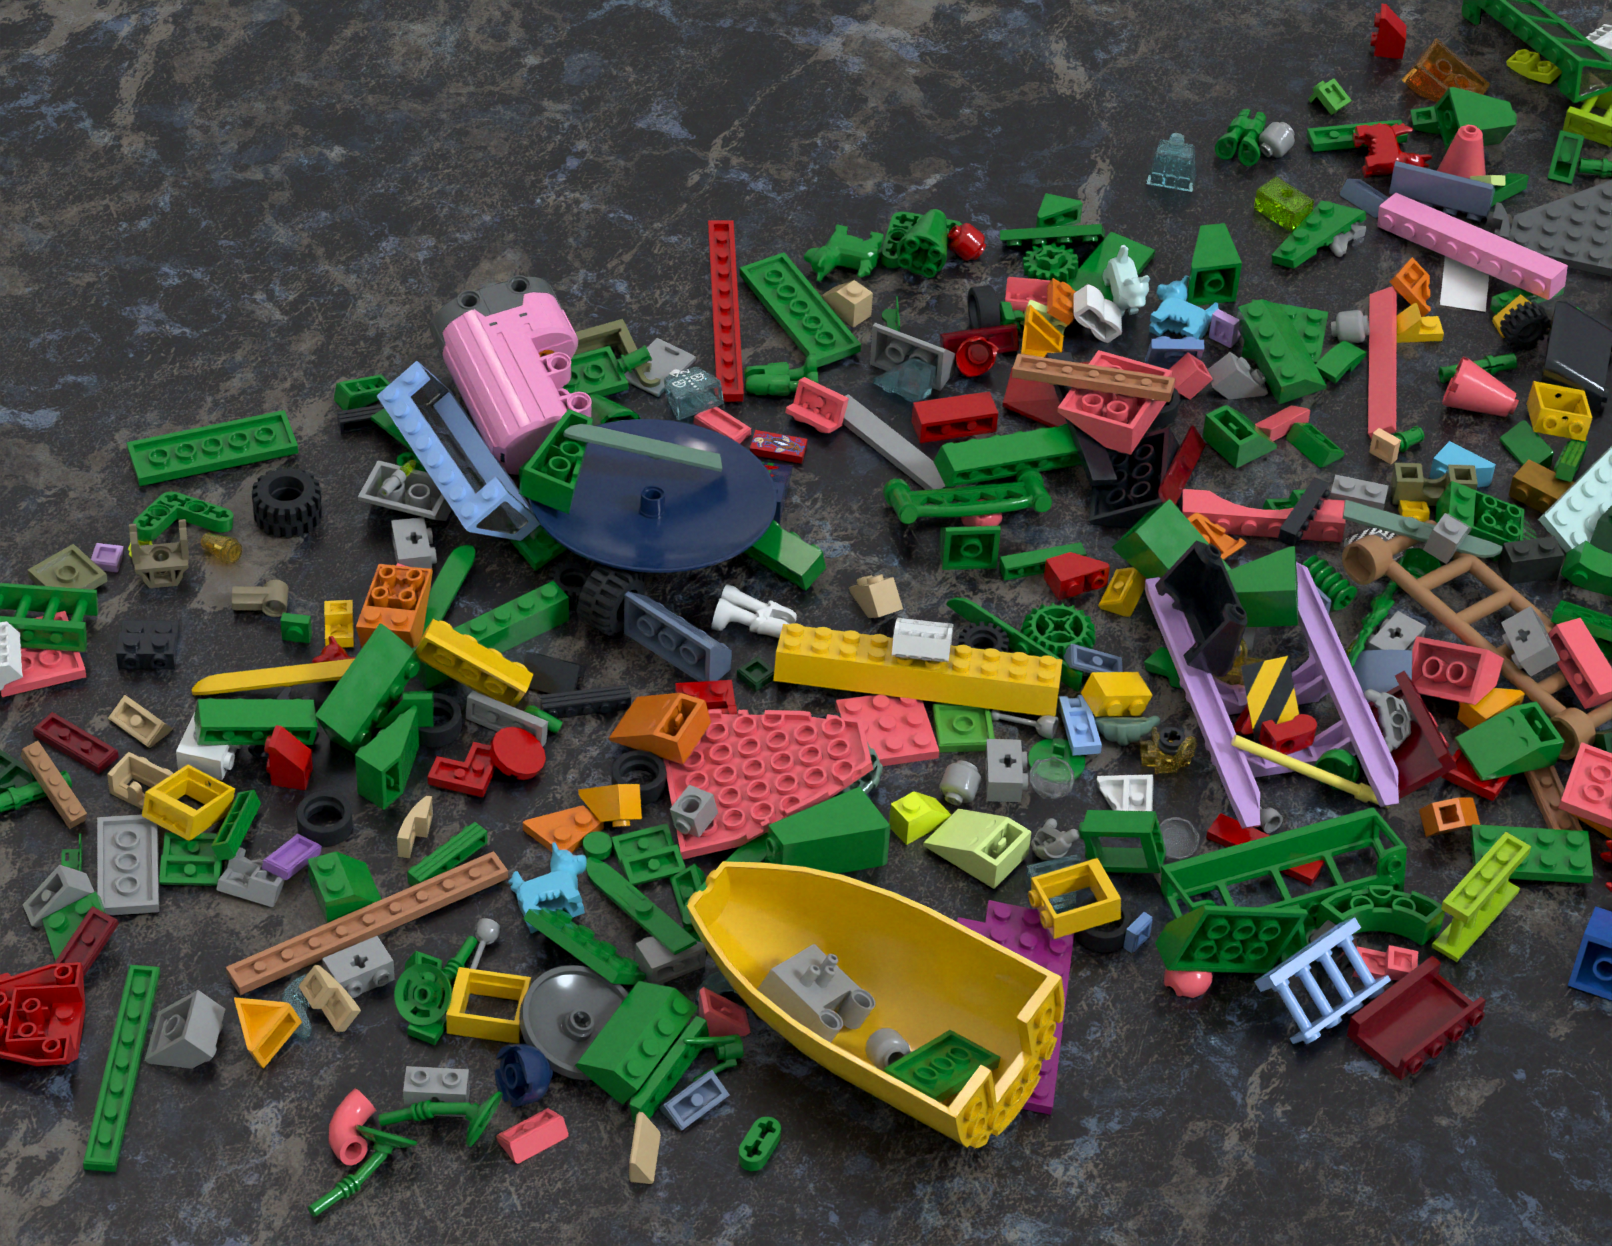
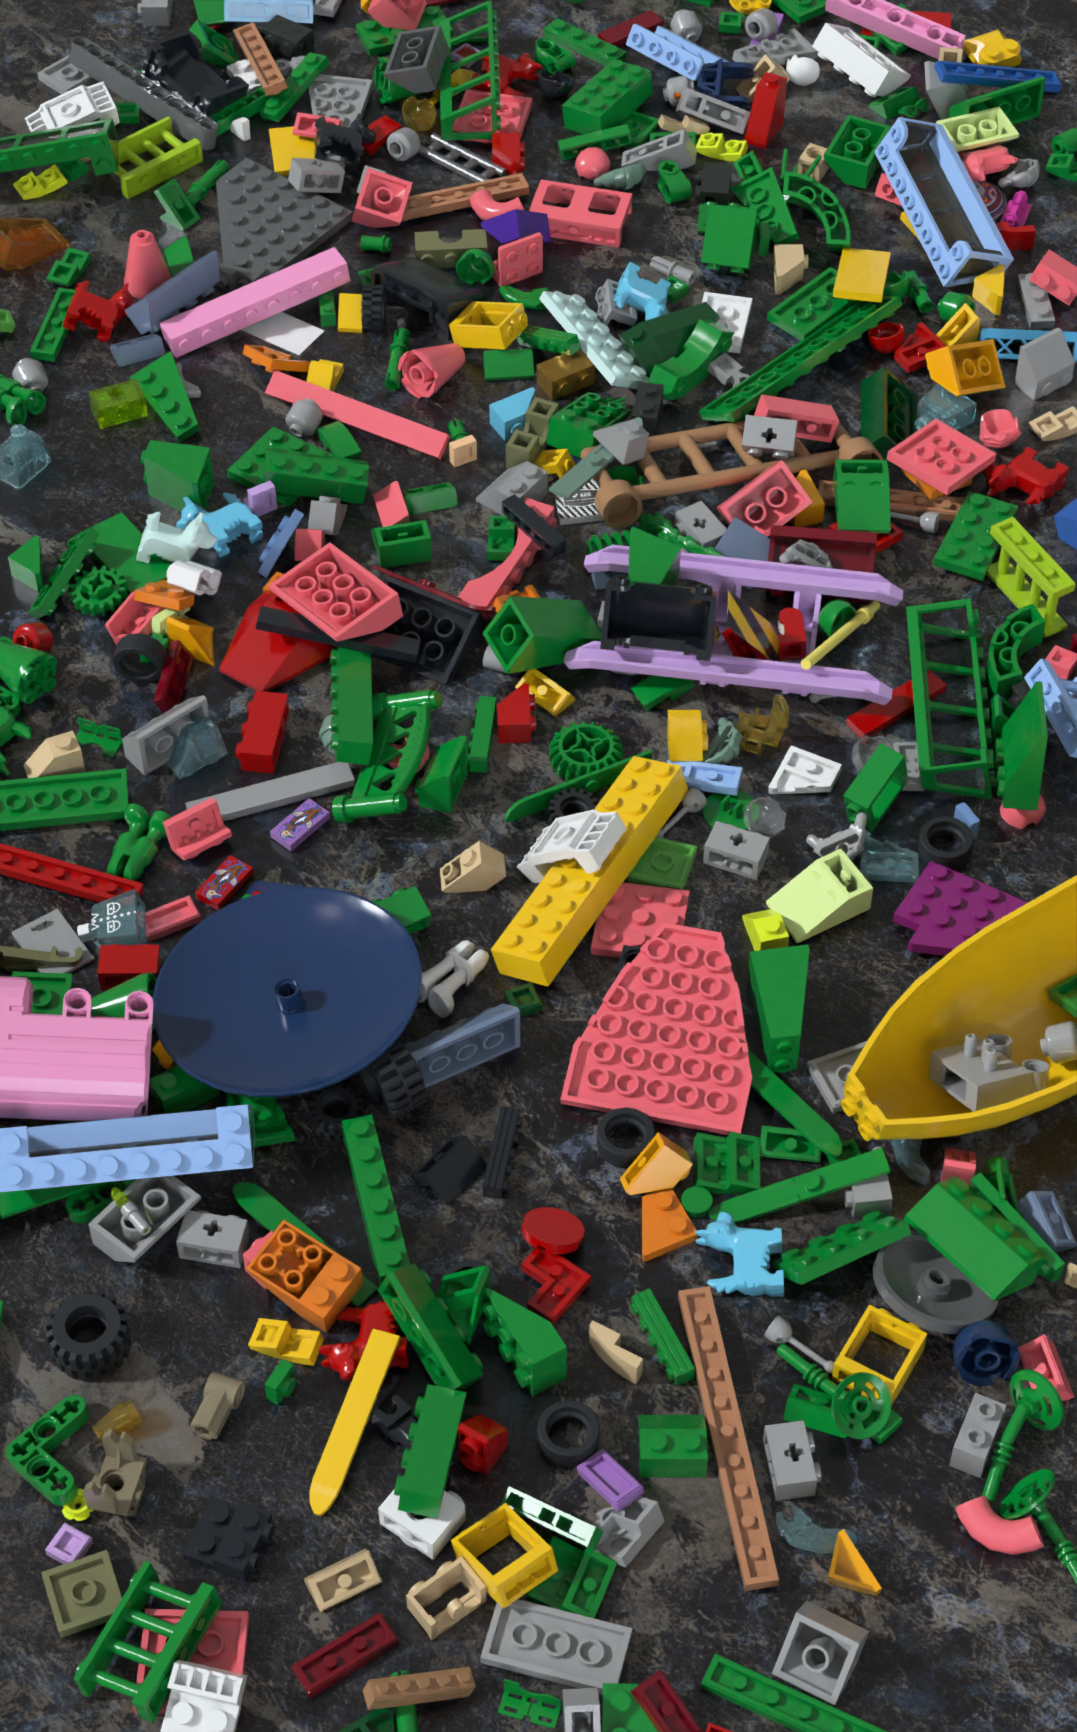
camera: 65 degrees left, 5 degrees up
(327, 994) = (827, 1494): tan slope -> none
(473, 664) = (436, 1221): yellow slope -> none
(499, 715) = (499, 1226): light grey plate -> none
(553, 723) = (506, 1200): green arm -> none
(556, 466) = (222, 1047): green wedge -> none
(634, 359) = (48, 954): green pin -> none
(645, 446) = (232, 969): sand green piece -> none
(652, 404) = (124, 962): none -> red brick
(663, 725) = (581, 1091): orange slope -> none
(693, 811) = (706, 1088): light grey brick -> none
(715, 693) = (535, 1051): red plate -> none
(867, 473) = (300, 824): none -> tile
(960, 782) = (739, 887): light grey head -> none
(975, 356) = (195, 682): red hair -> none
(1070, 879) = (932, 821): yellow window -> none
(1091, 660) = (639, 738): sand blue slope -> none
(1093, 377) = (316, 597): nougat plate -> none
(1168, 734) = (762, 709): black bush -> none
(1448, 816) = (917, 570): orange slope -> none
(1465, 108) = (102, 239): green slope -> none
(1496, 180) = (179, 261): yellowish green tile -> none
(1530, 815) = (928, 521): none -> light grey hinge

